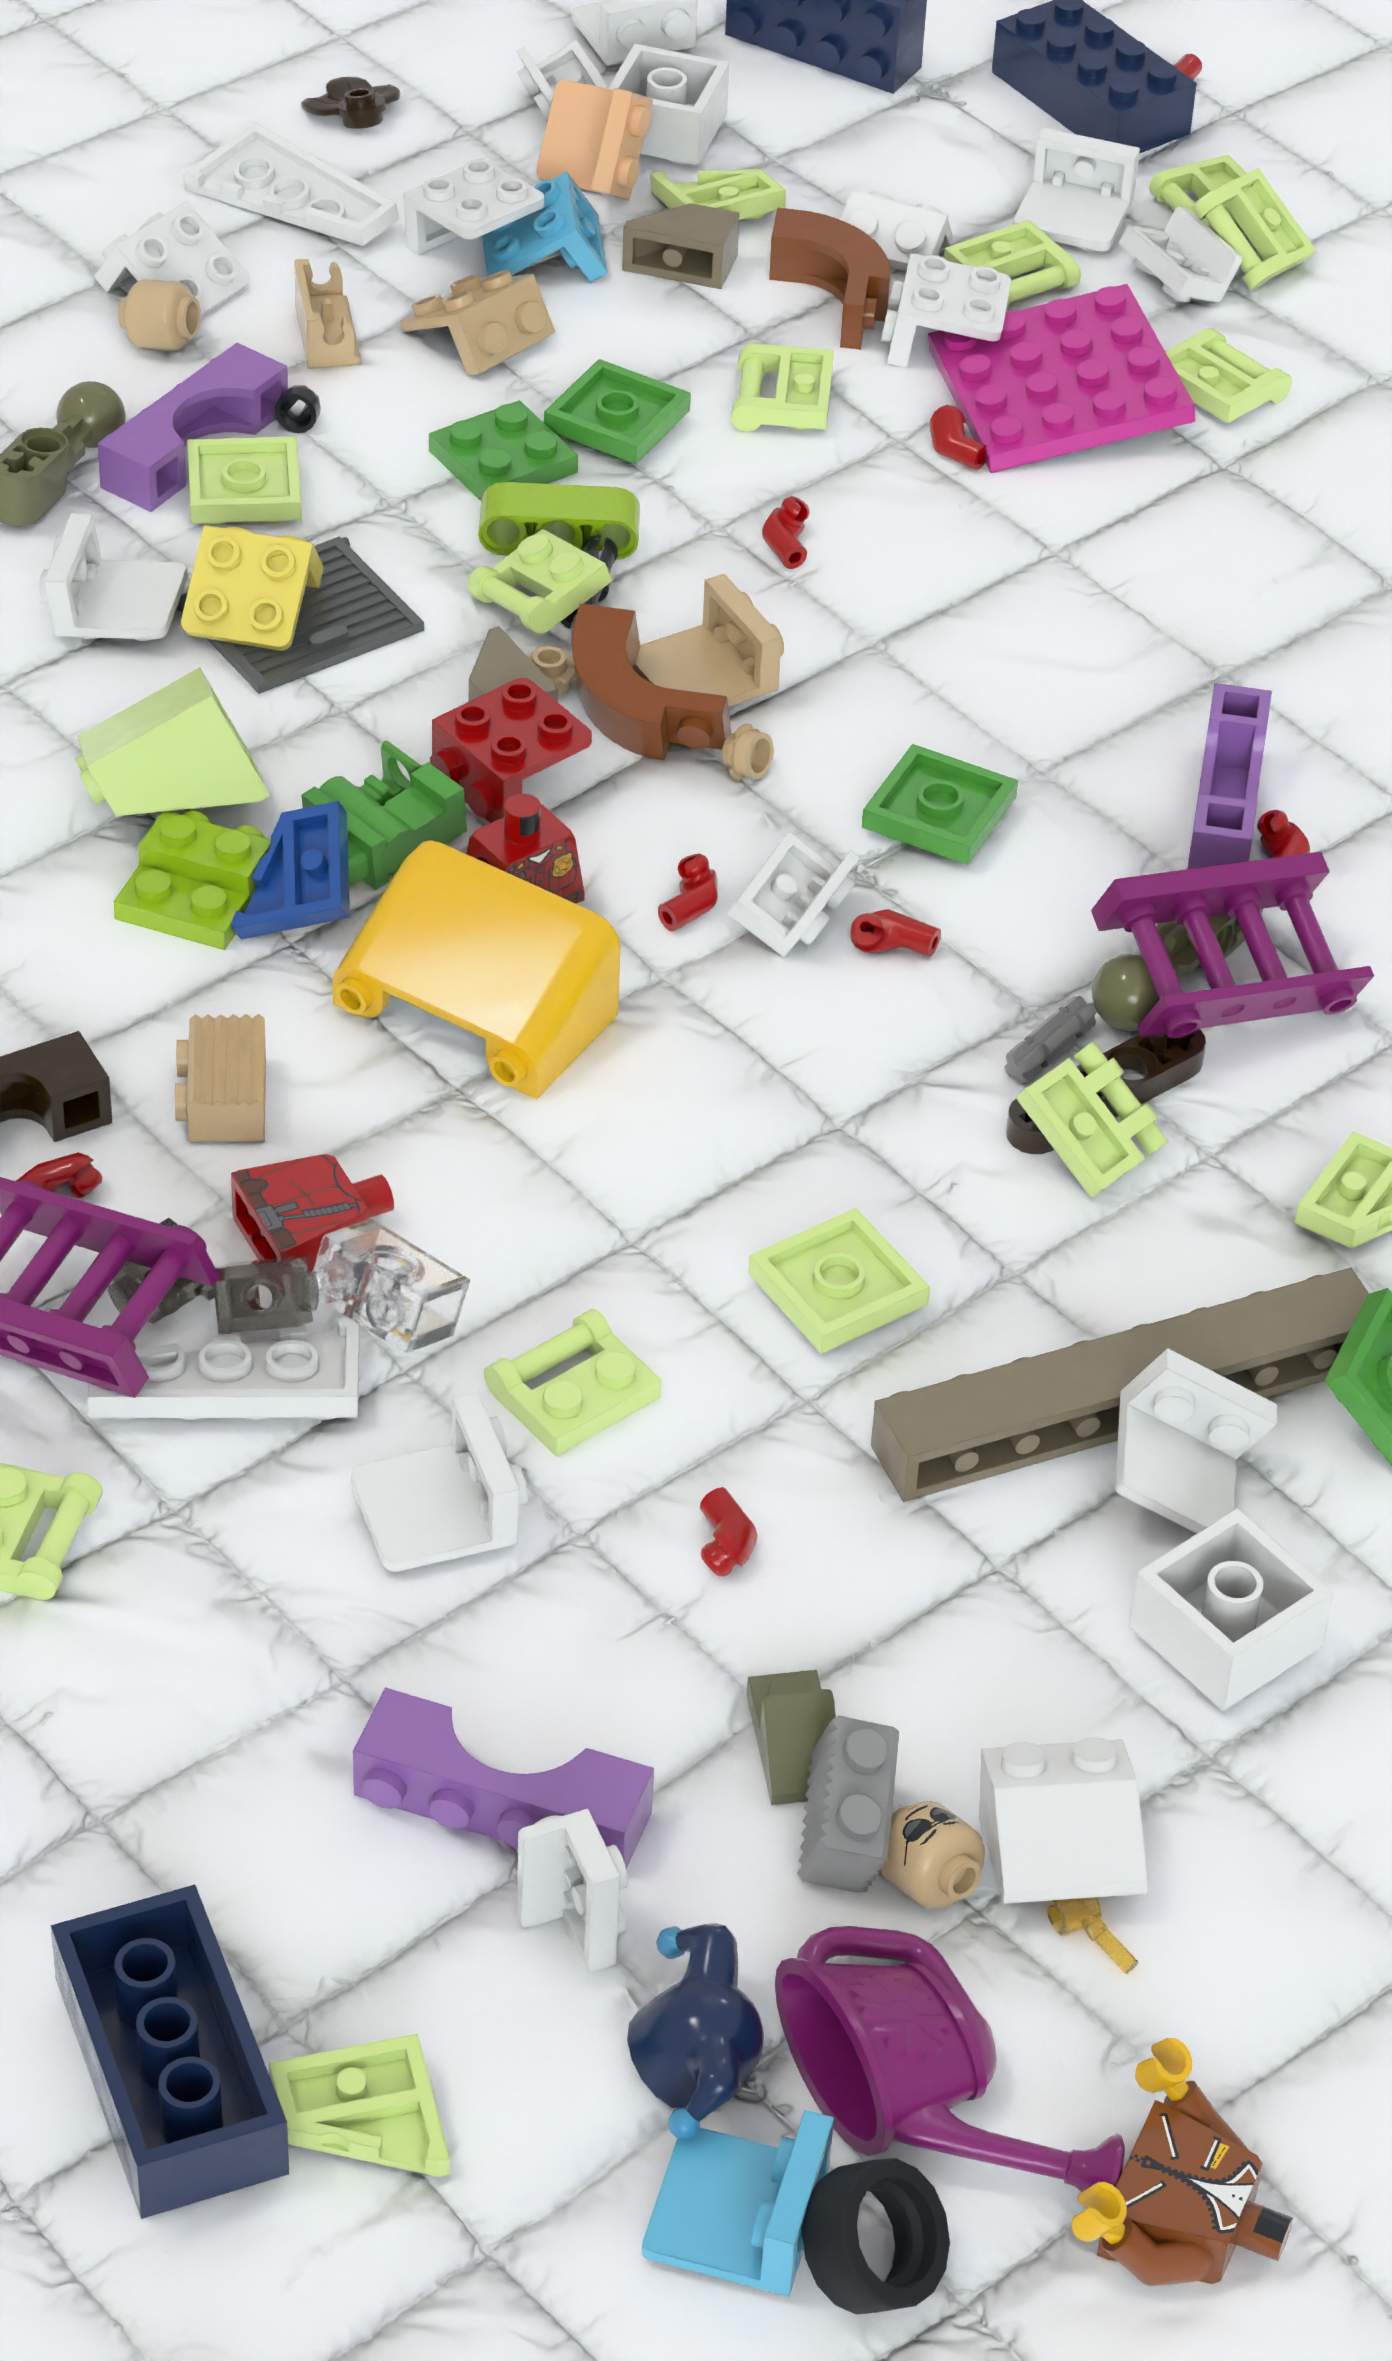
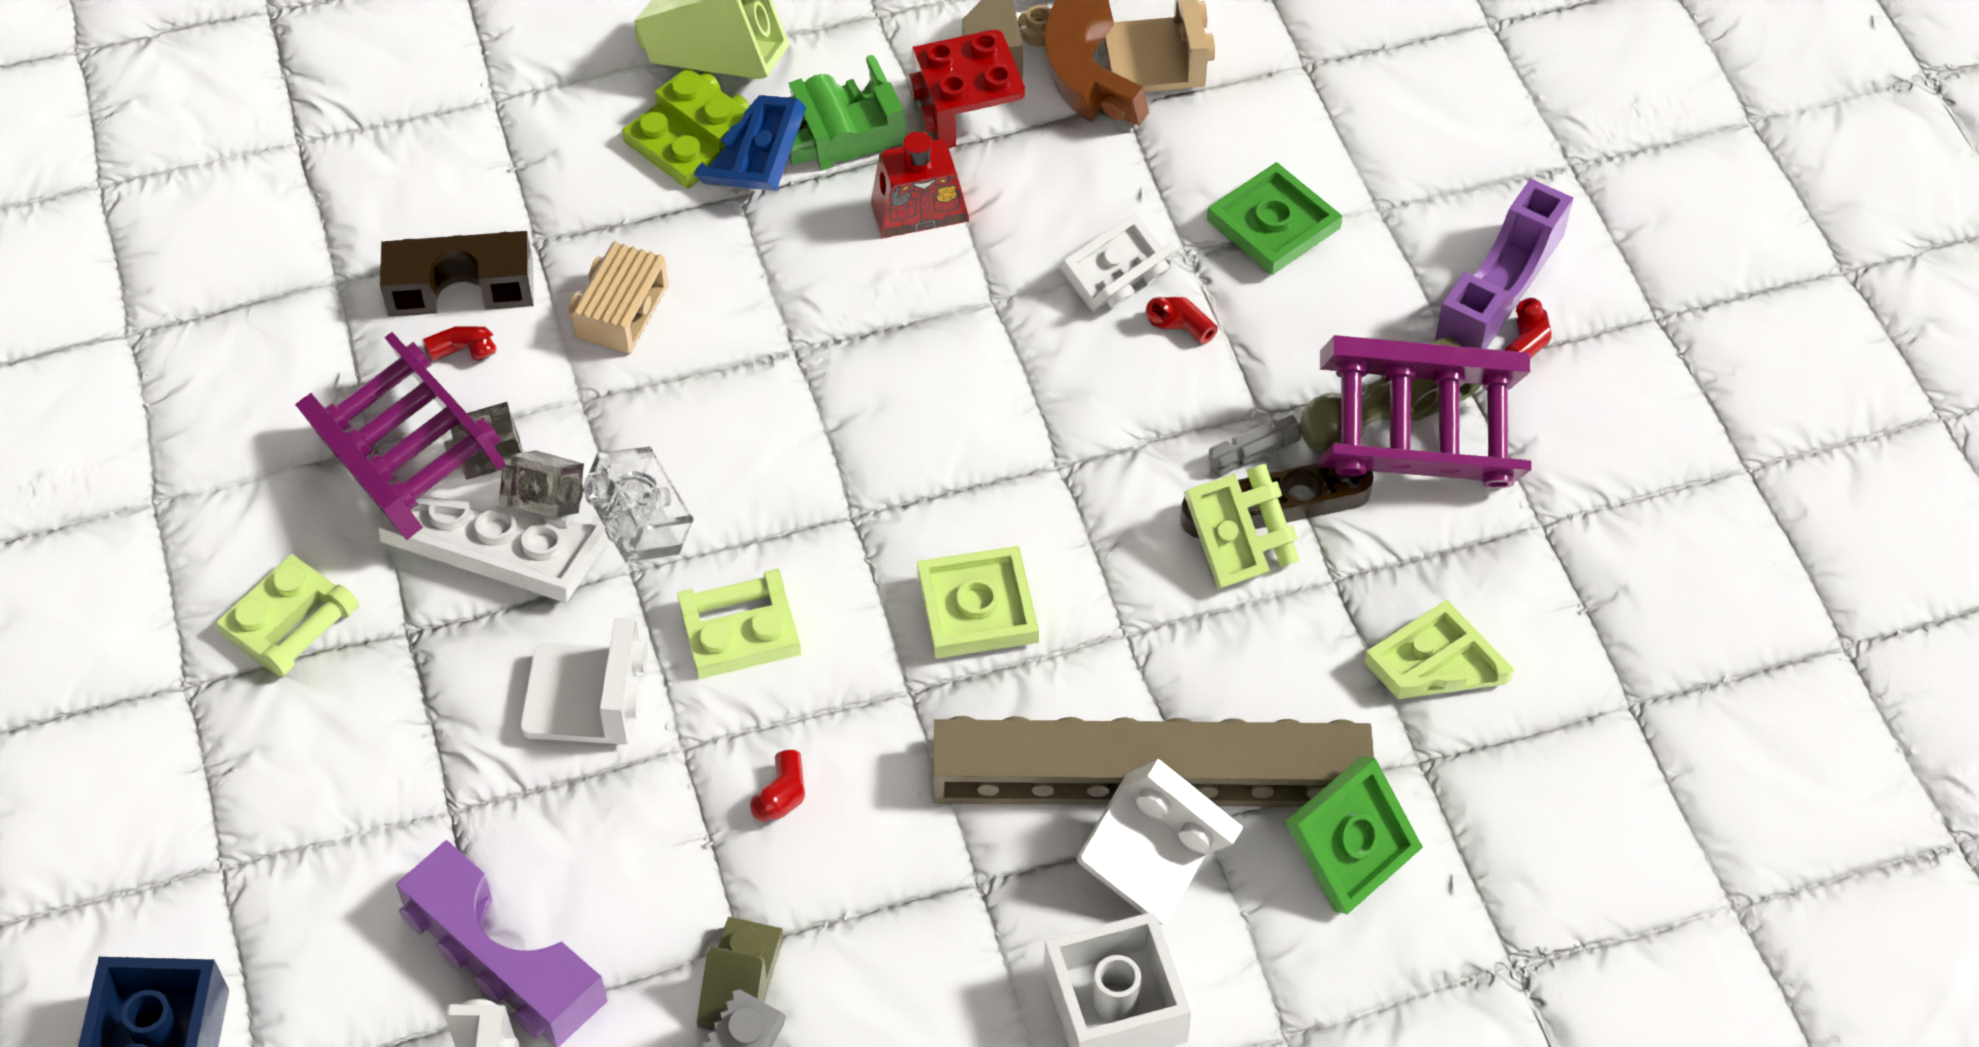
camera: 25 degrees right, 10 degrees up
(295, 1202) = (615, 417): red torso -> none
(490, 959) = (847, 264): yellow windscreen -> none
(696, 895) = (1050, 241): red arm -> none
(748, 752) = (1150, 134): tan plate -> none

